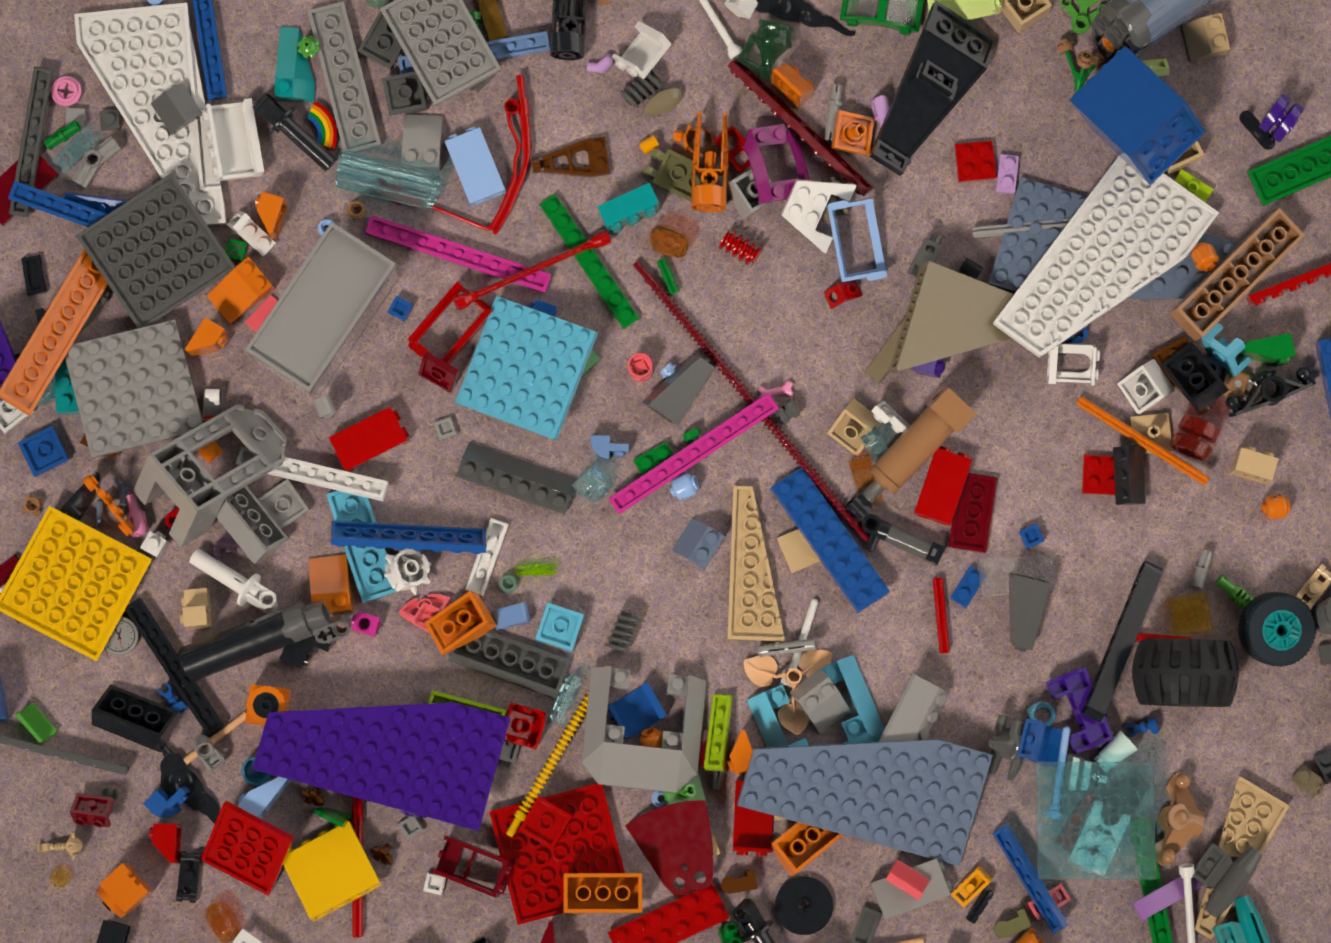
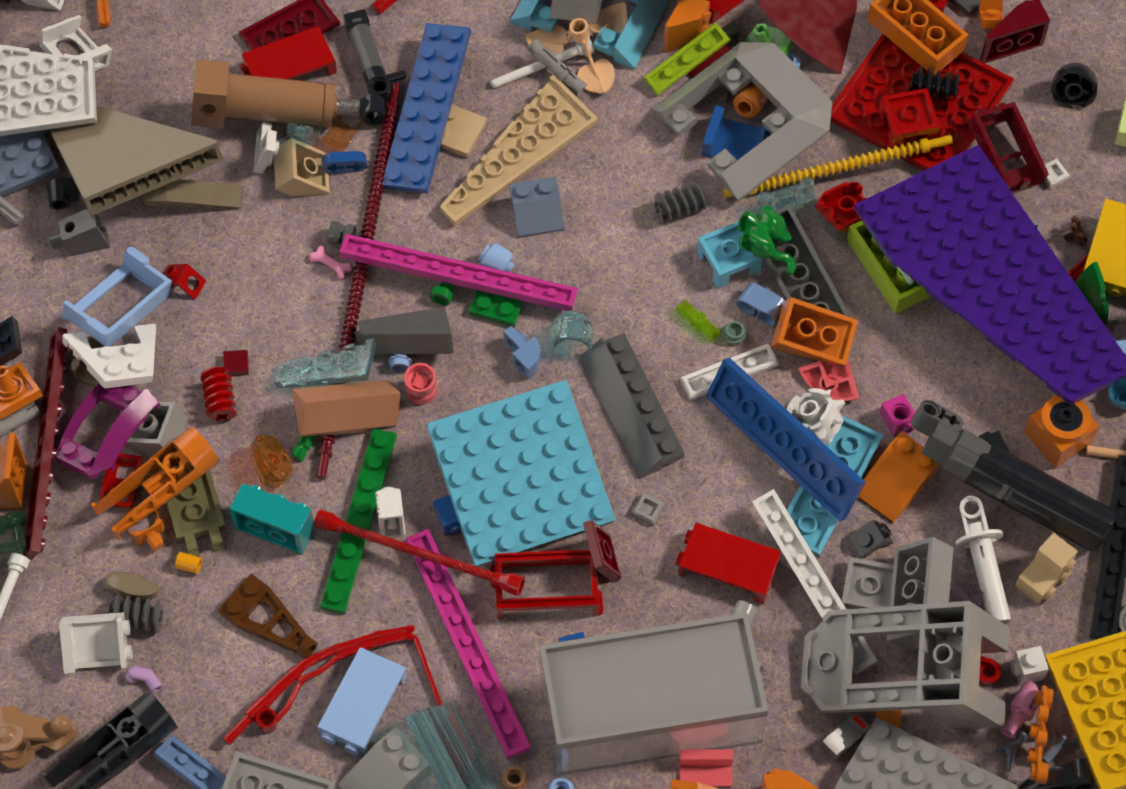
camera: 135 degrees left, 20 degrees down
(309, 535) = (871, 538): none -> black bracket
(551, 662) = (760, 232): none -> green animal
(555, 863) = (935, 83): none -> black piece
(571, 276) = (390, 512): none -> white brick
(664, 311) = (346, 408): none -> nougat slope
(699, 323) = (328, 368): none -> clear light blue wing
(756, 278) = (236, 362): none -> dark red tile
(837, 457) = (344, 162): none -> blue beam

